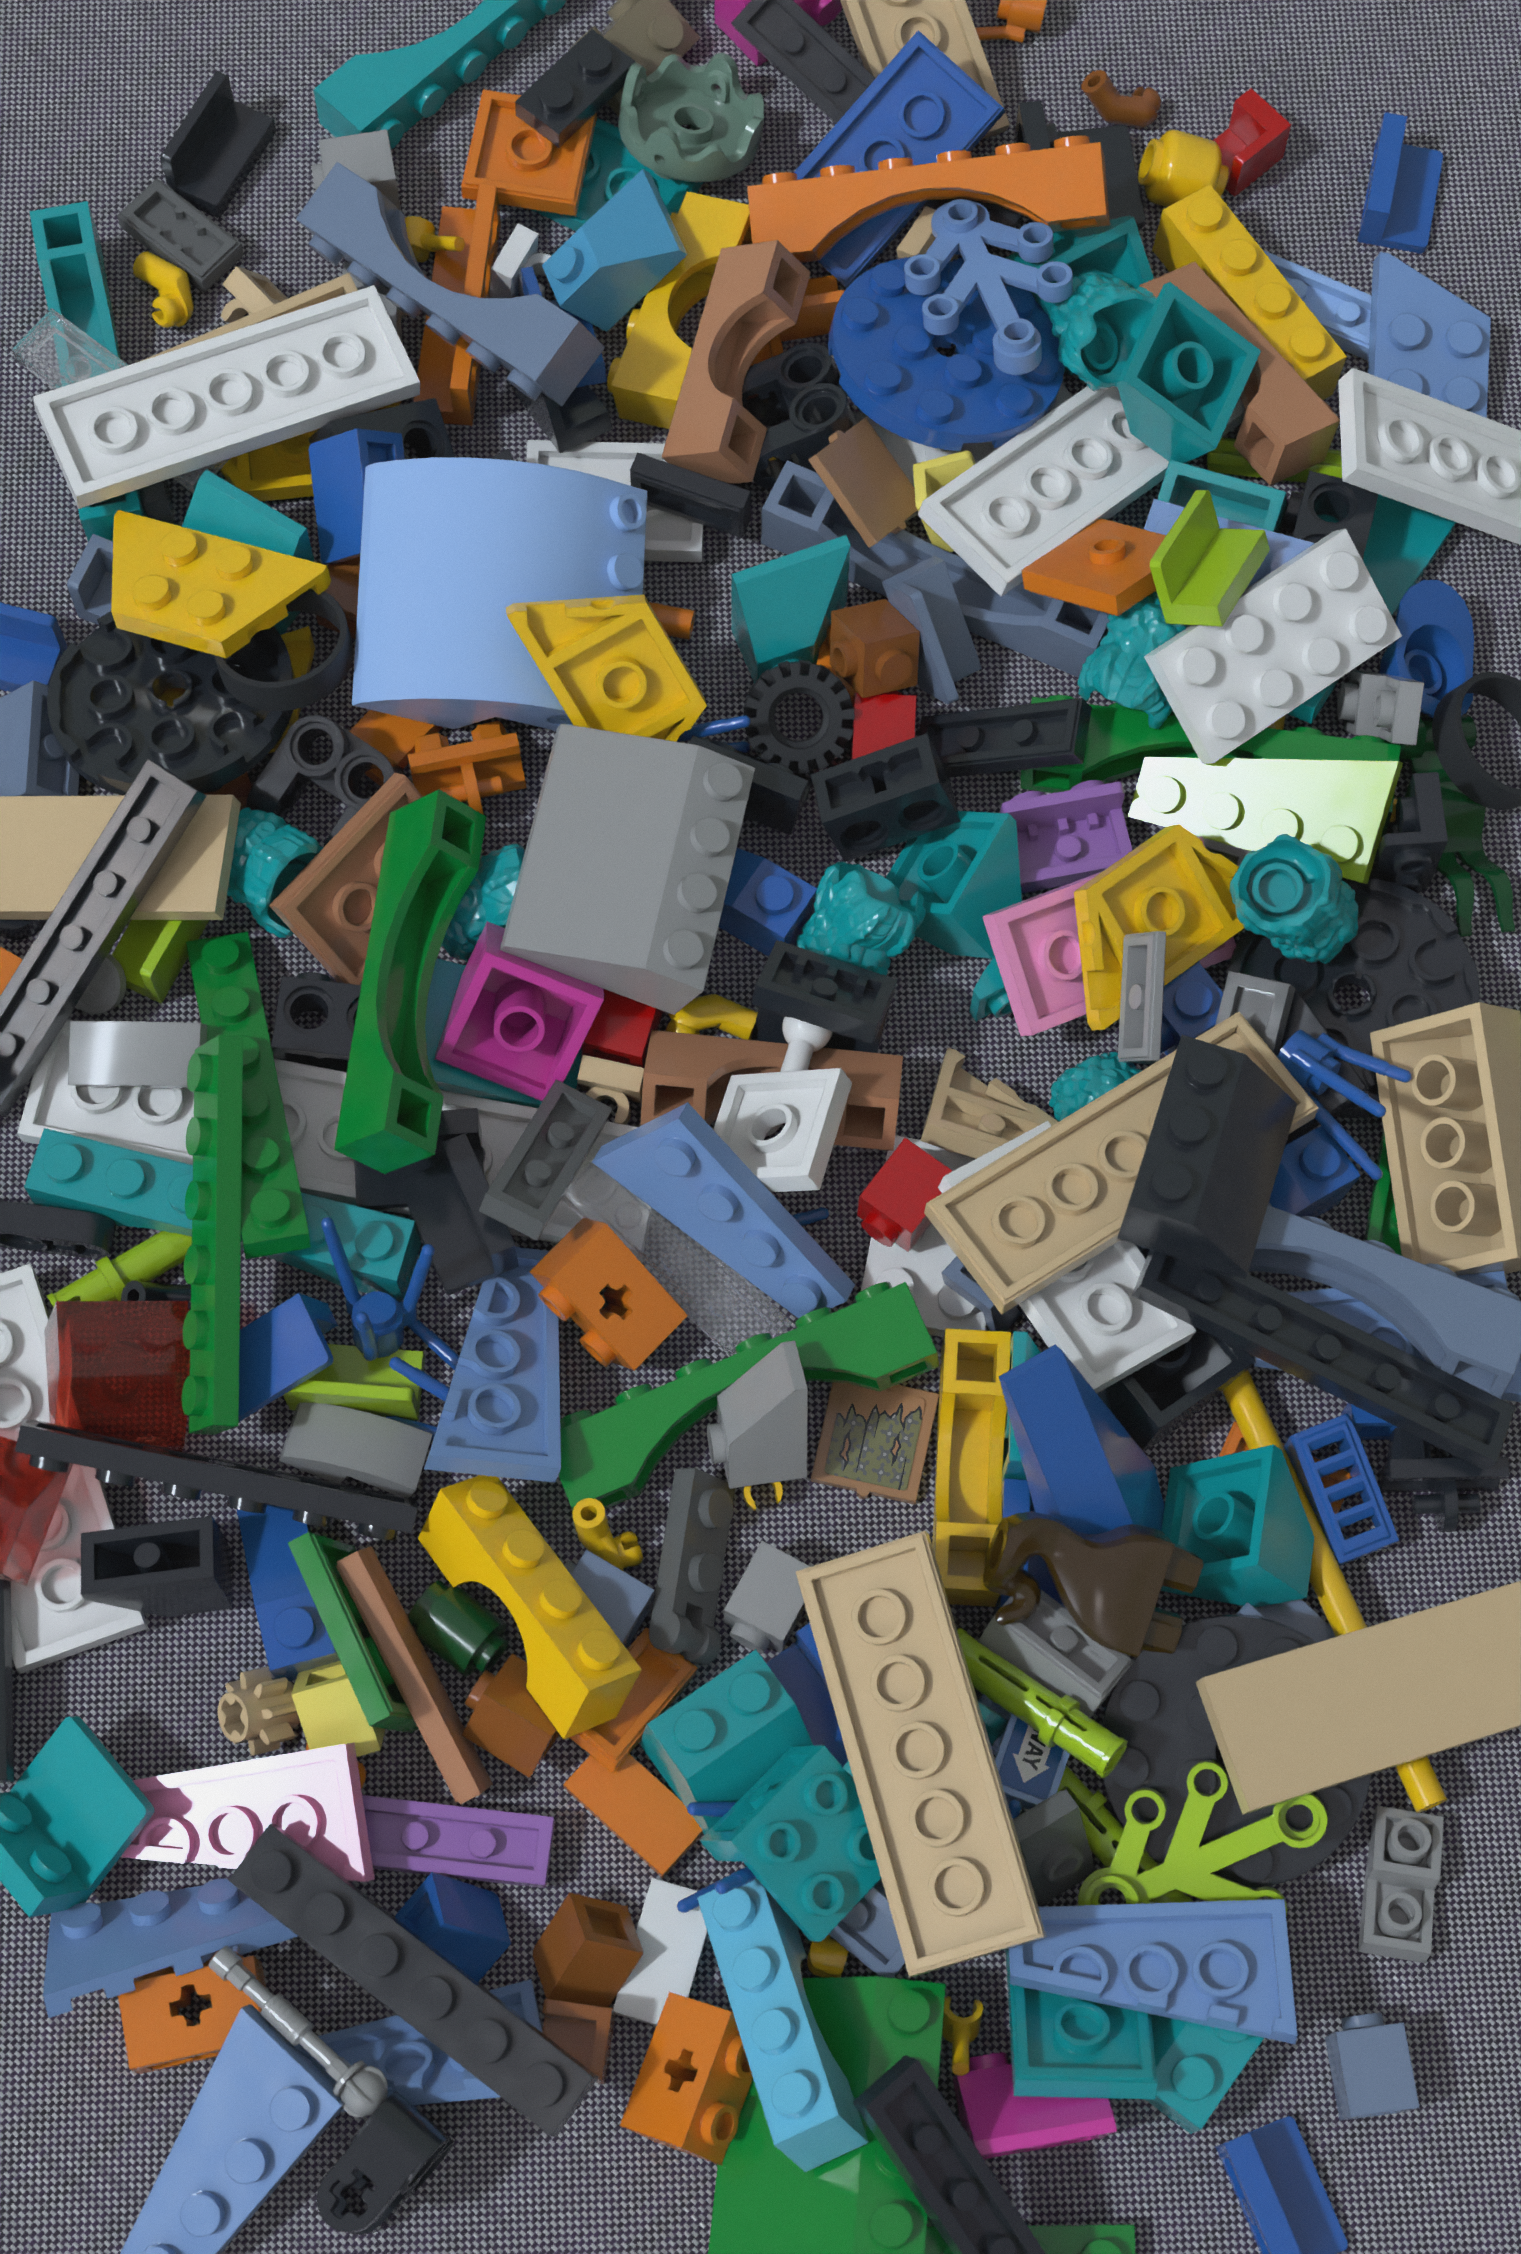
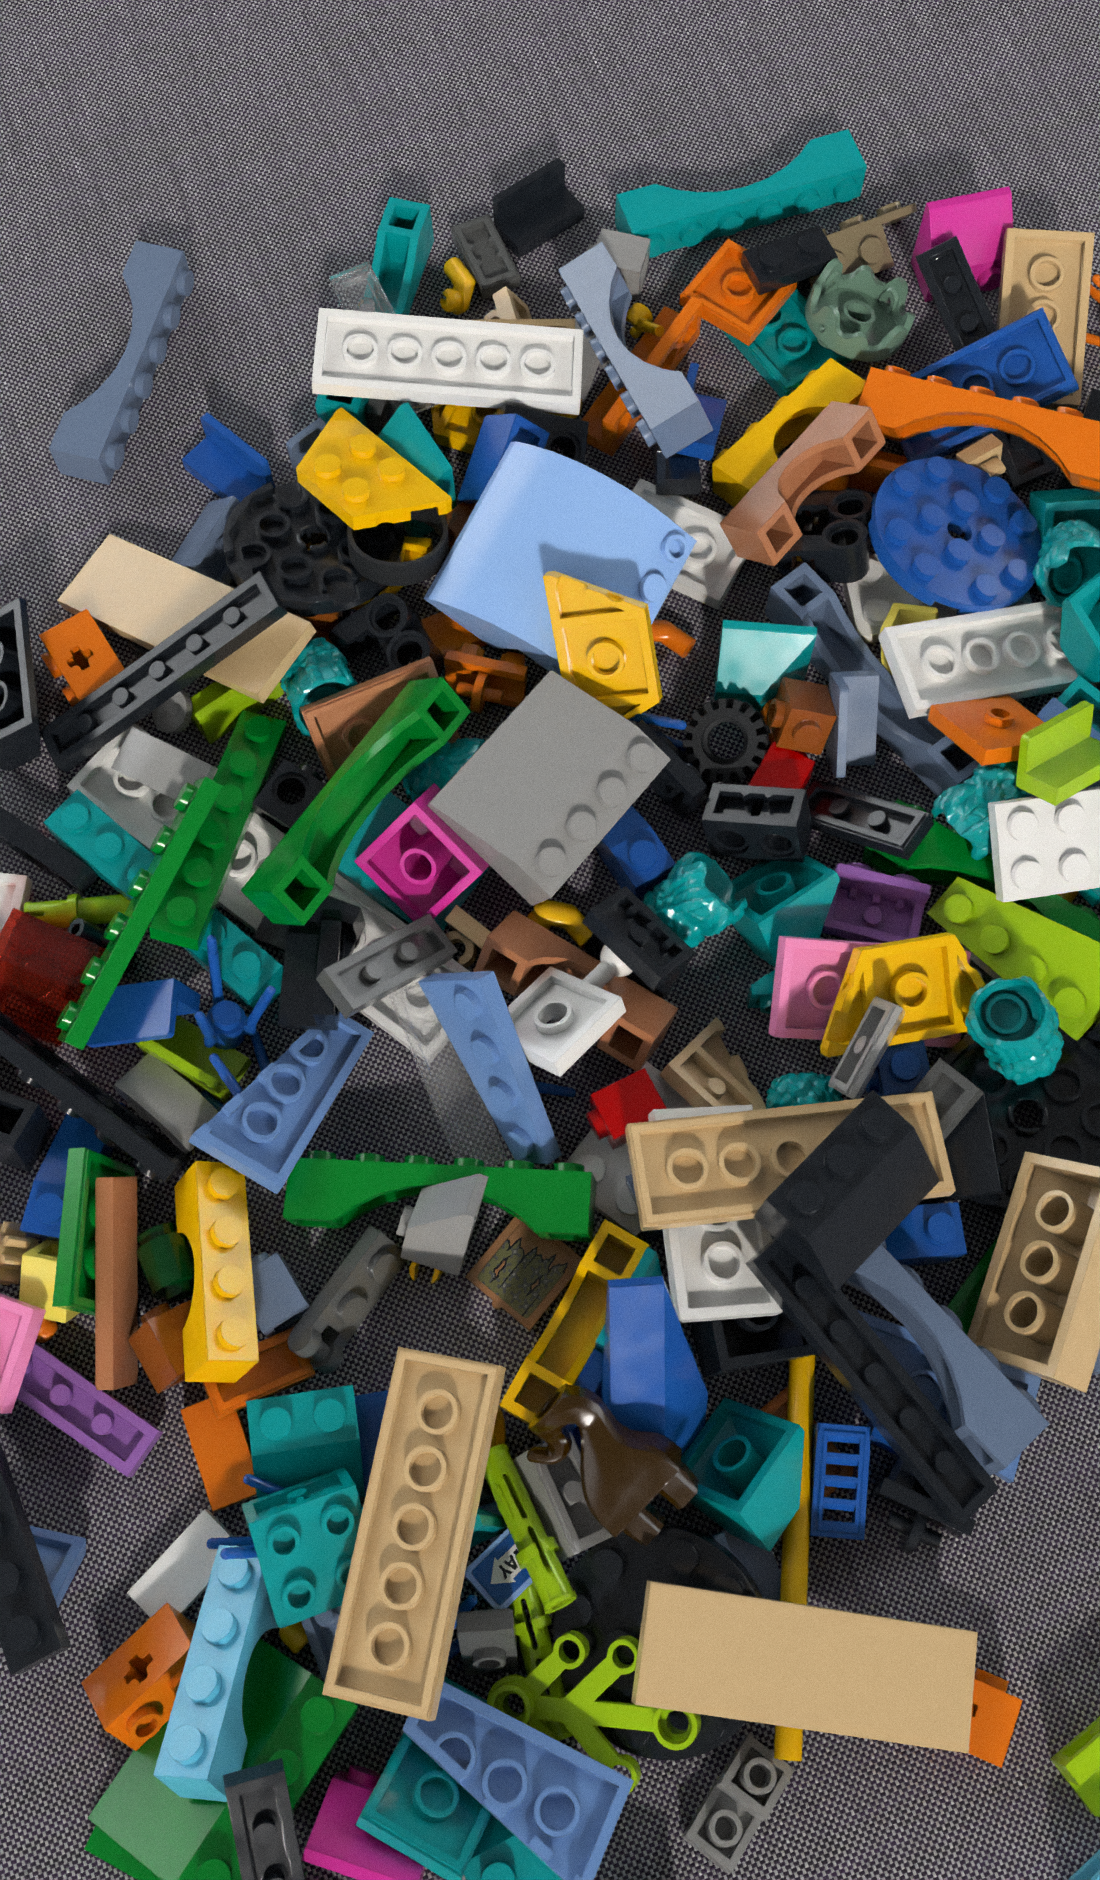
camera: 30 degrees right, 0 degrees up
(458, 1922) = (52, 1474): blue panel -> none
(517, 253) = (698, 351): white tile -> none
(581, 2032) = (92, 1601): dark orange panel -> none
(587, 1951) = (131, 1540): dark orange panel -> none
(596, 1537) = (296, 1250): yellow arm -> none
(616, 255) = (758, 378): dark azure slope -> none
(621, 1030) = (491, 899): red brick -> none
(638, 1309) = (395, 1106): orange brick -> none
(692, 495) = (728, 558): black tile -> none
(766, 1601) = (378, 1347): light grey brick -> none
(866, 482) = (852, 599): medium nougat piece -> none
(960, 2033) = (356, 1743): yellow hand -> none
(962, 230) = (1008, 457): medium blue plant -> none
(1315, 1069) = (968, 1158): blue plant -> none

